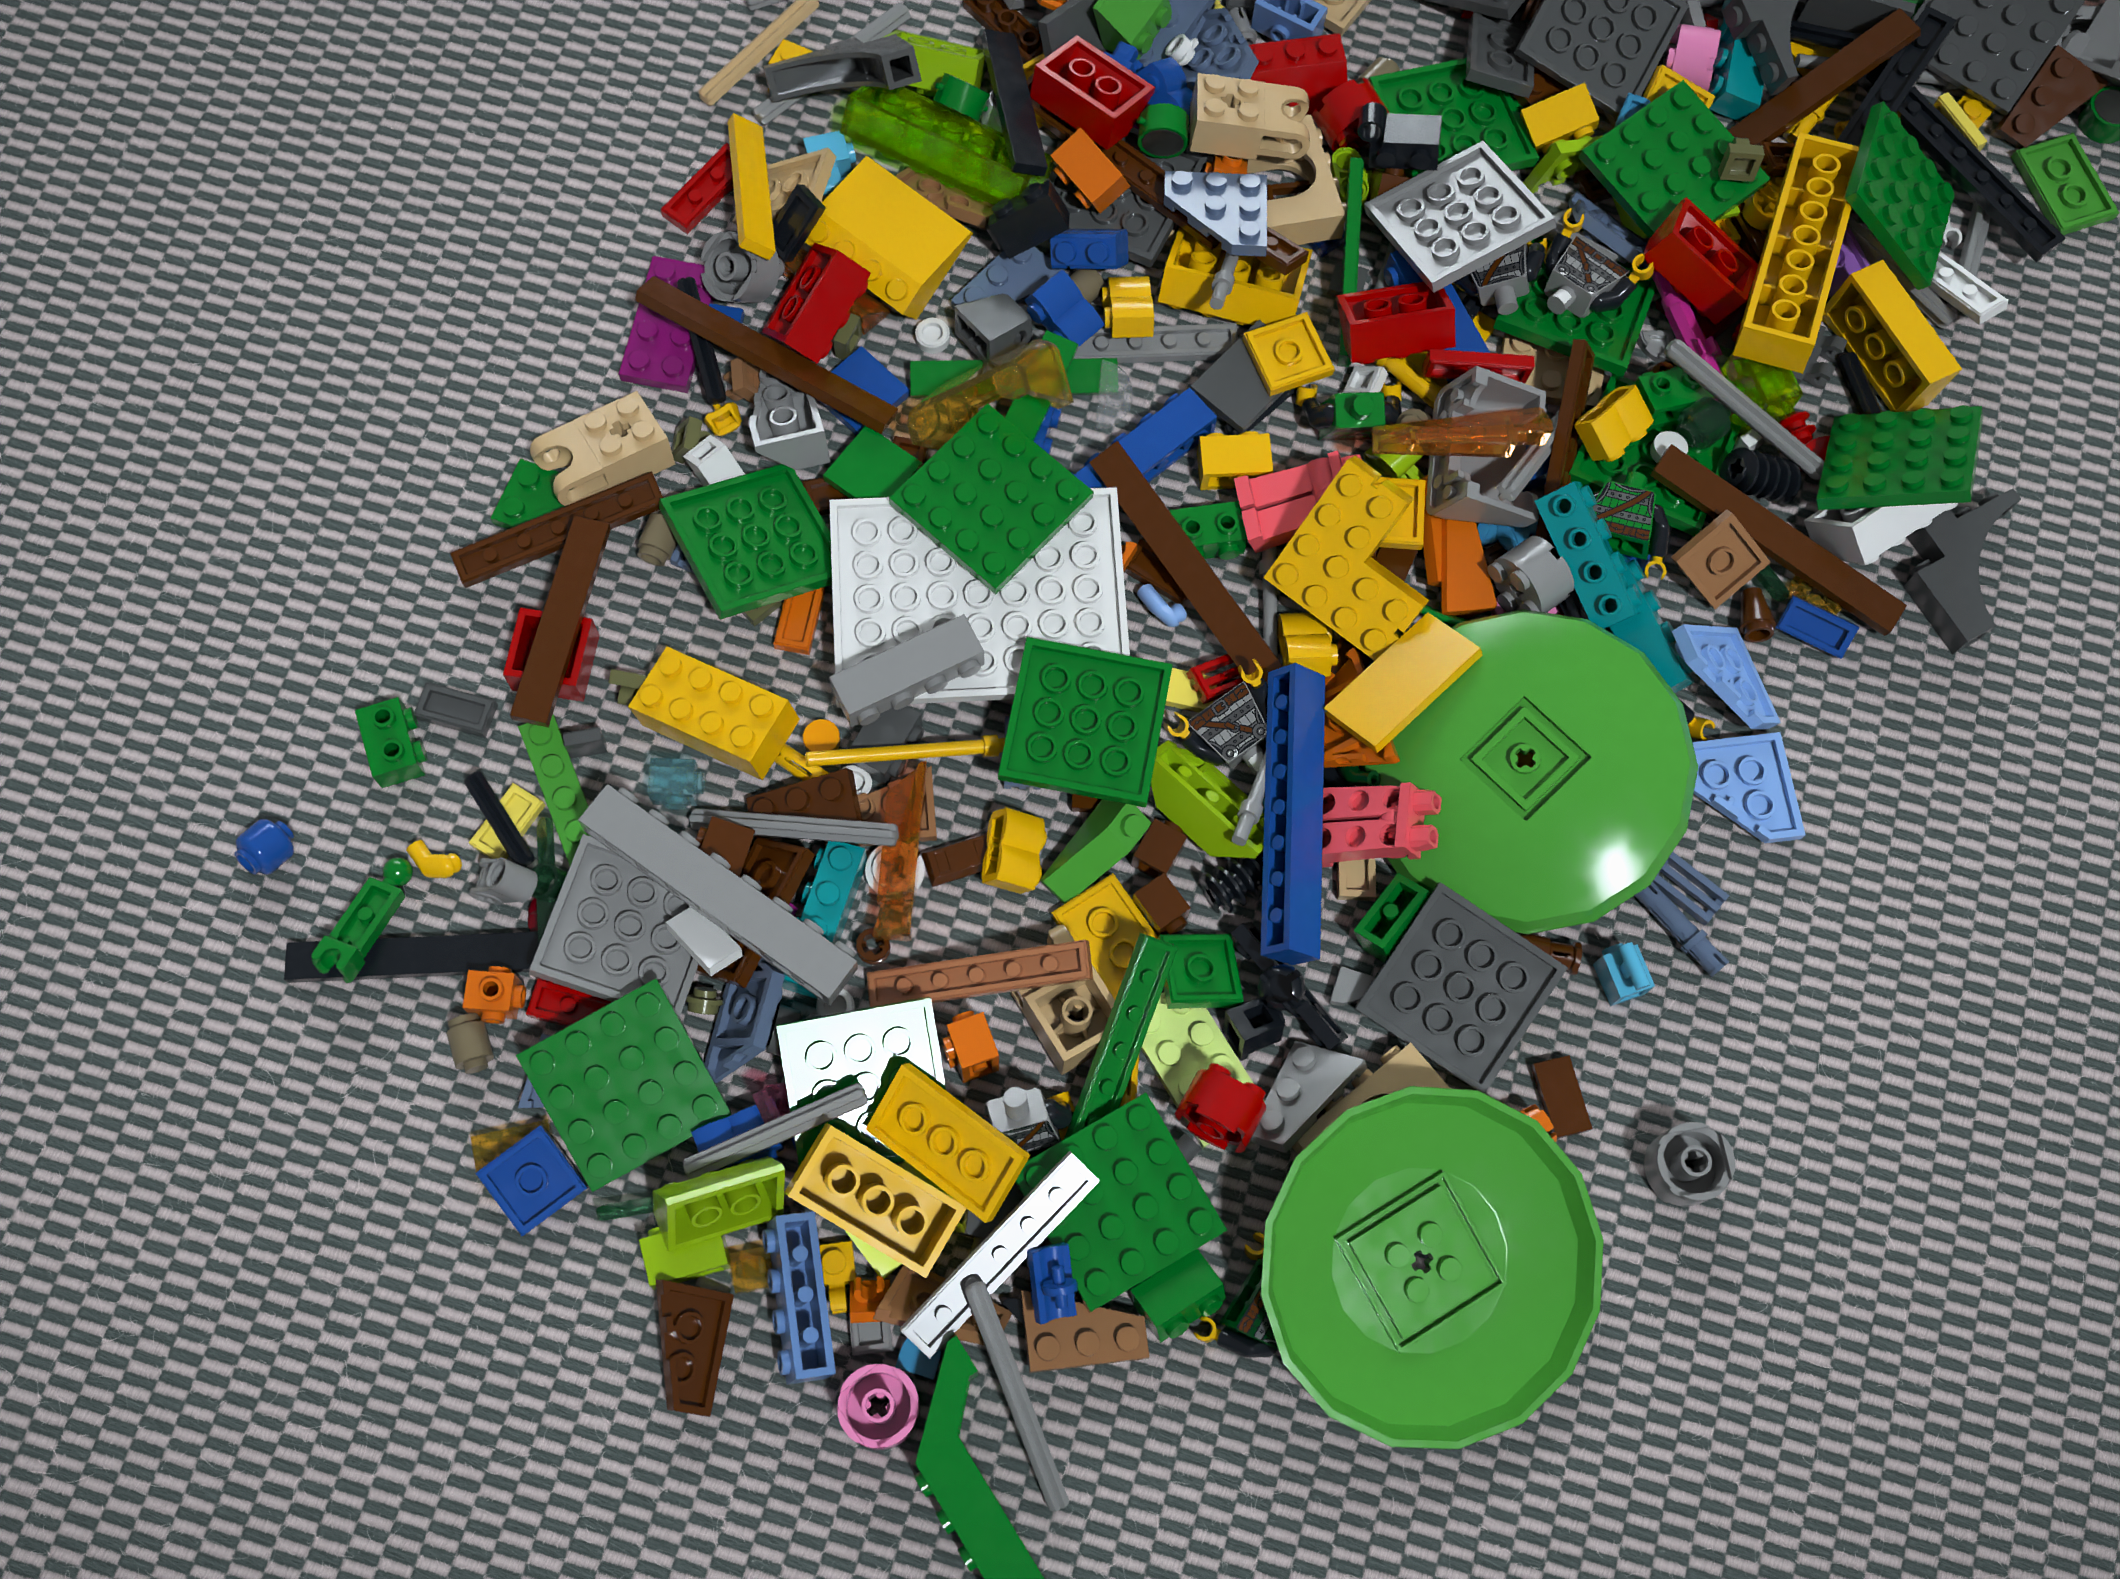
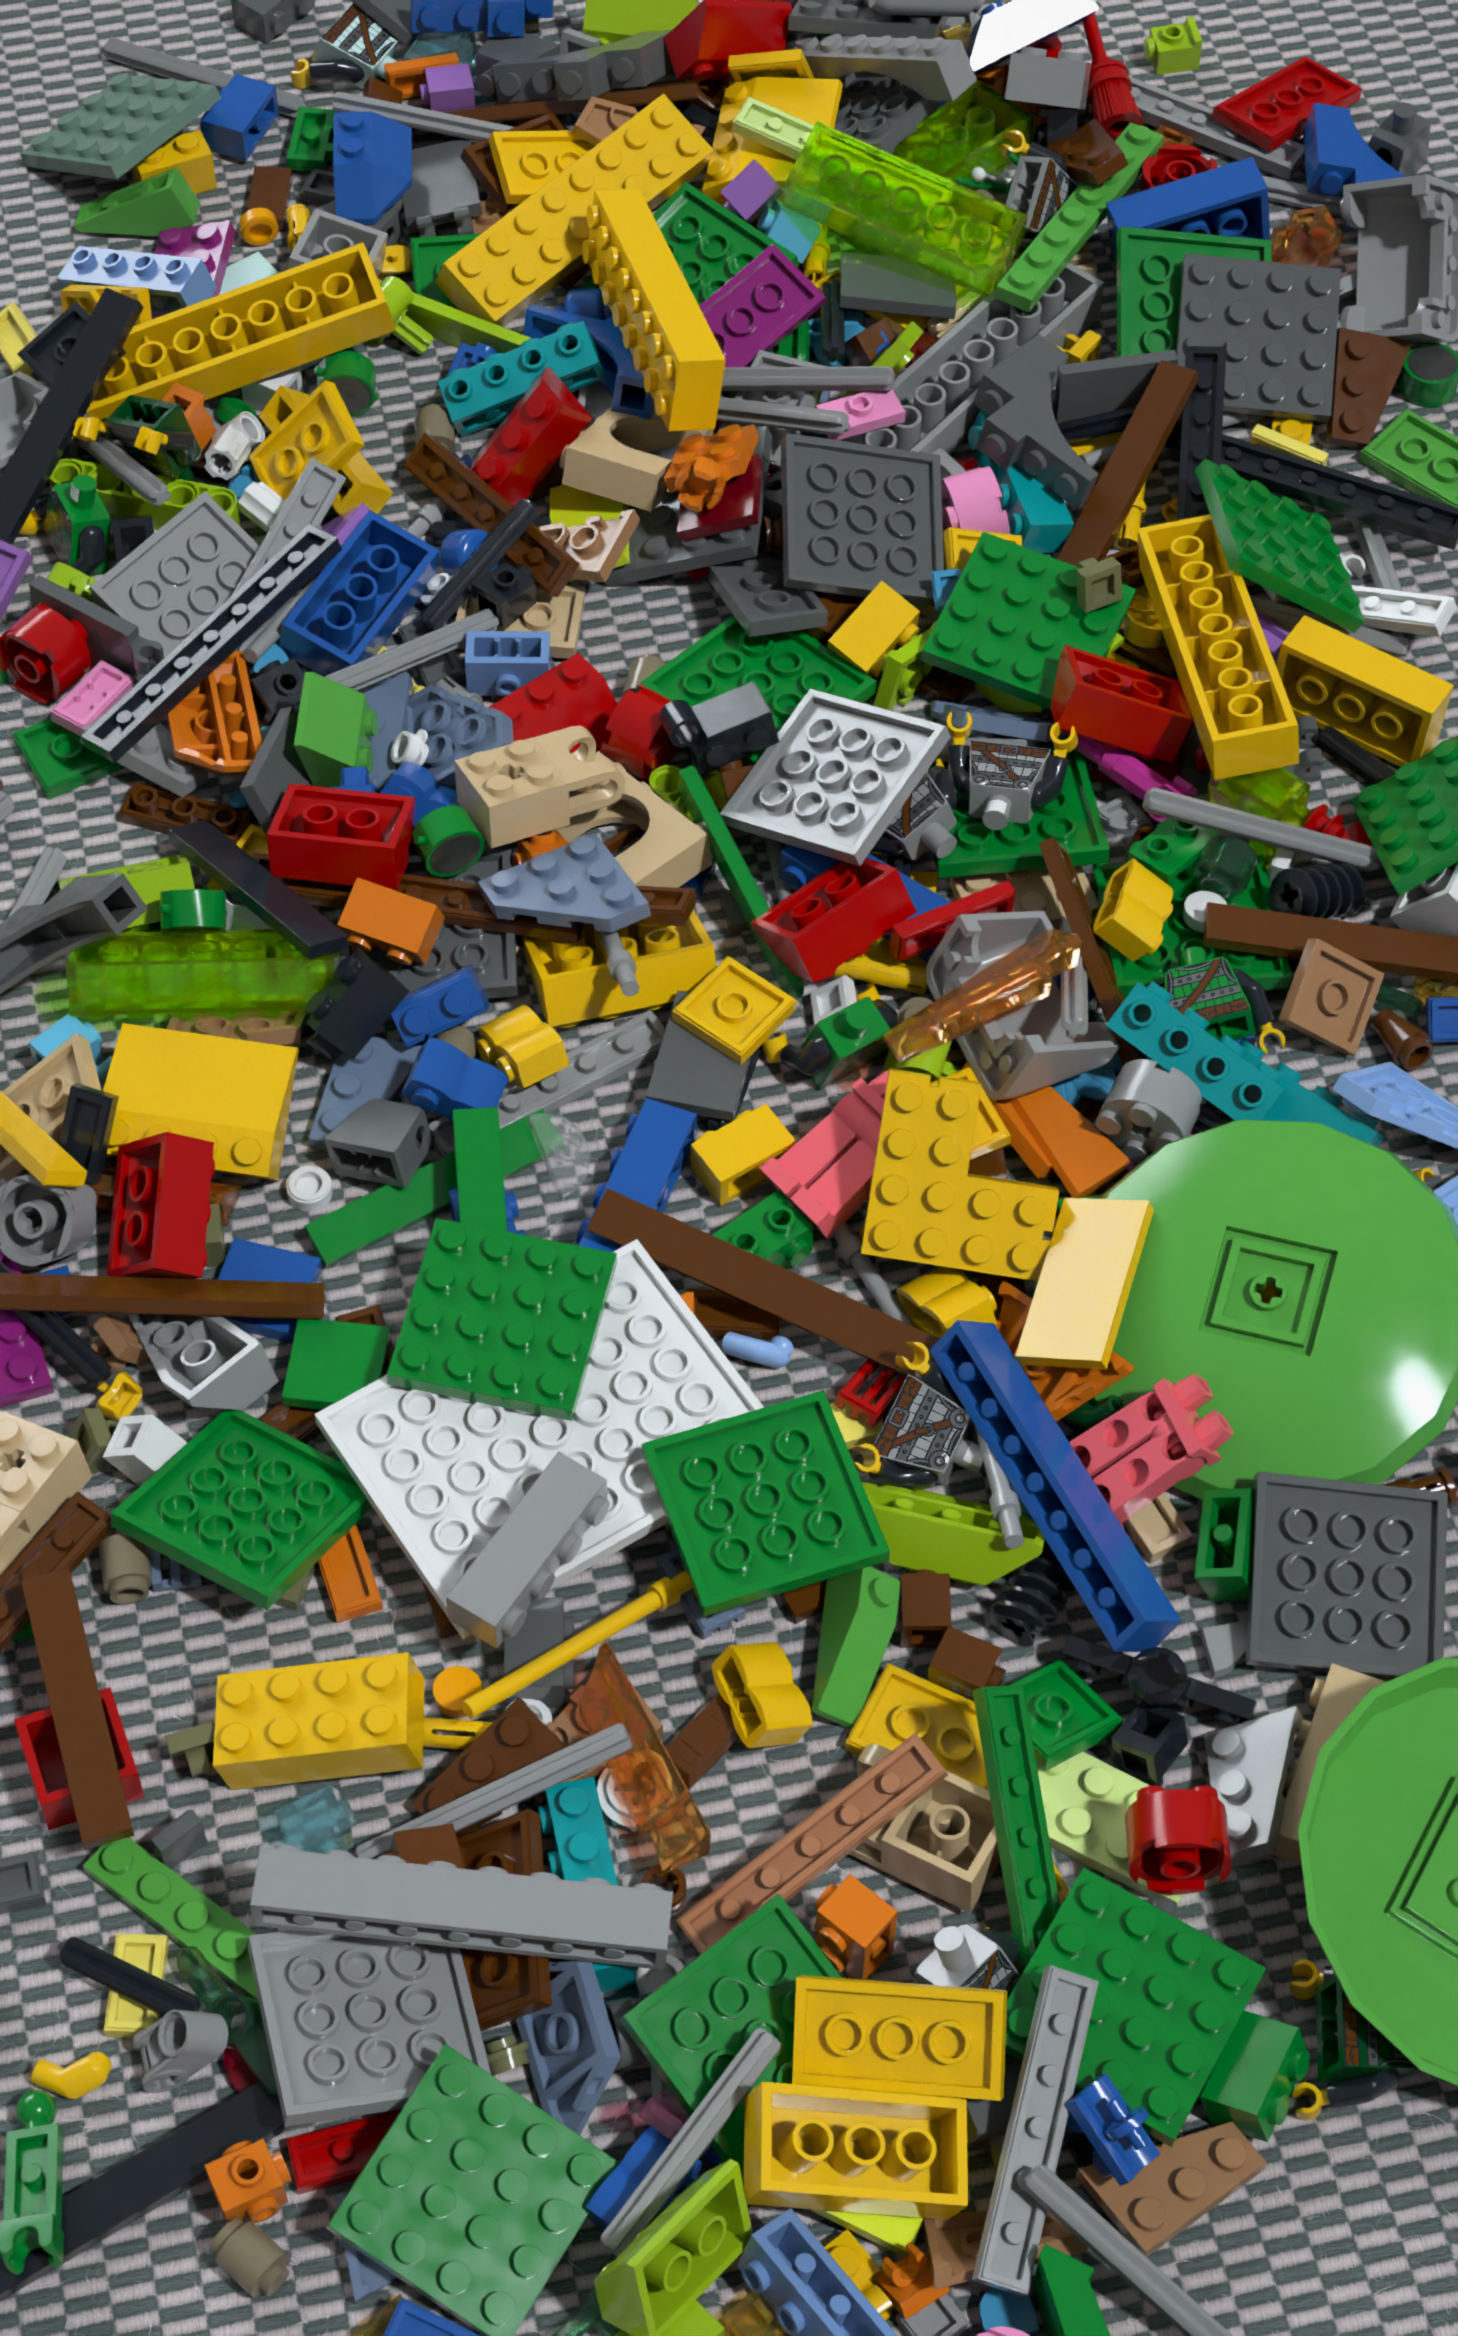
camera: 25 degrees left, 15 degrees down
(704, 940) = (470, 1975): white tile -> none
(1029, 370) = (461, 1159): clear yellow windscreen -> none

